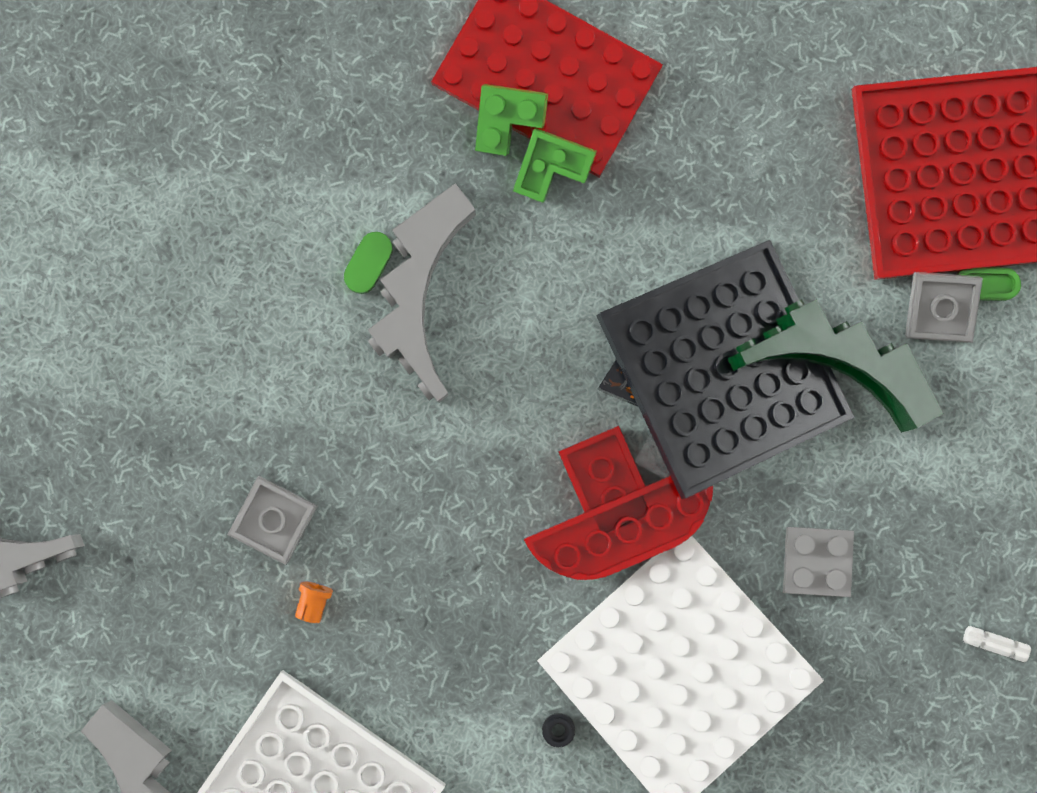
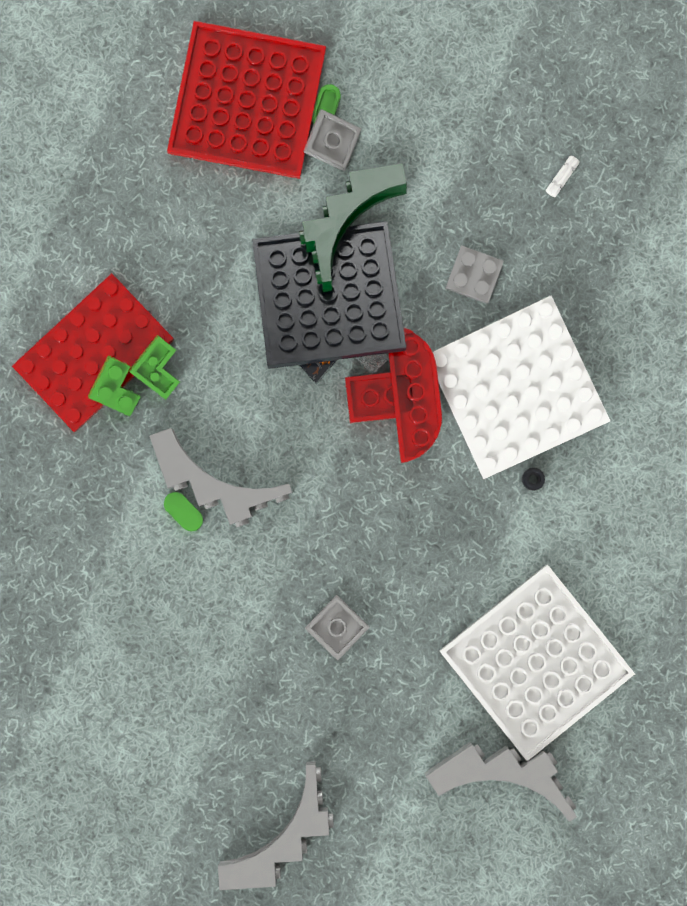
camera: 75 degrees left, 0 degrees up
(312, 601) = (400, 616): orange bush -> none

